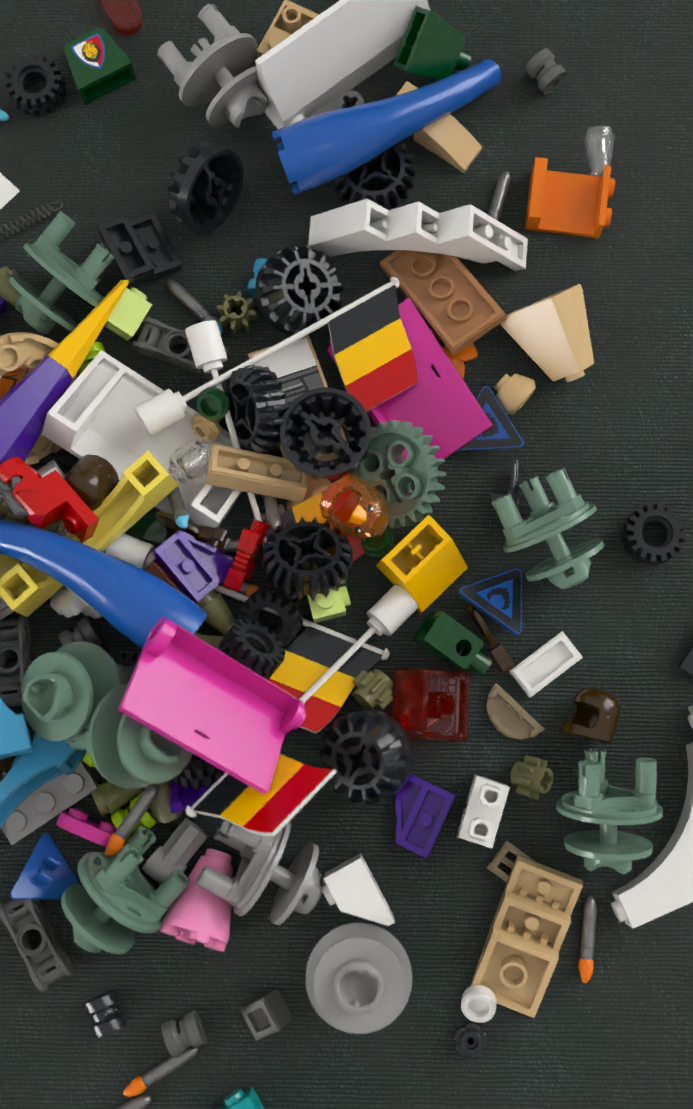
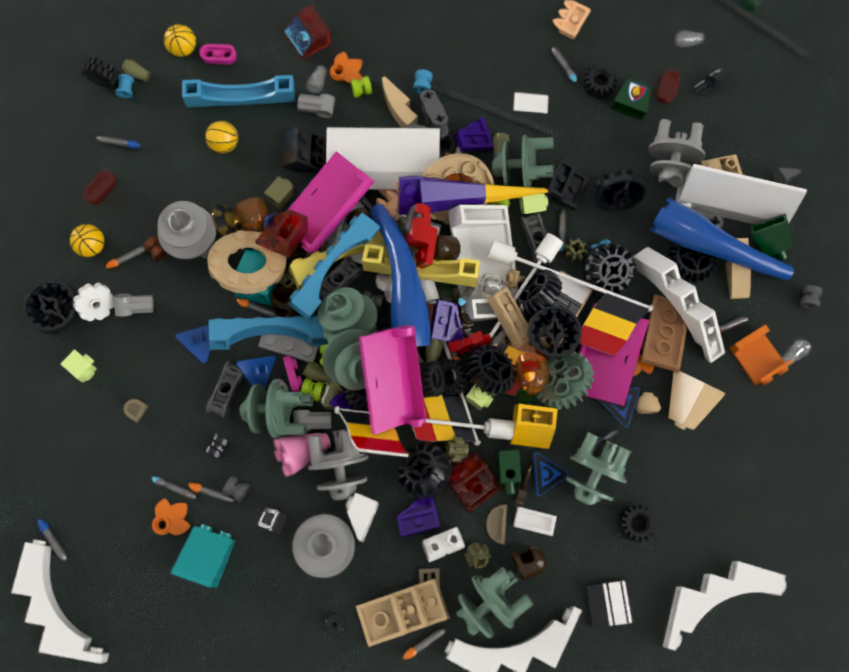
camera: 40 degrees right, 5 degrees down
(117, 839) = (312, 387): flat silver piece -> none
(213, 403) = (525, 272): dark green plate -> none
(478, 1003) = (354, 614): white tile -> none

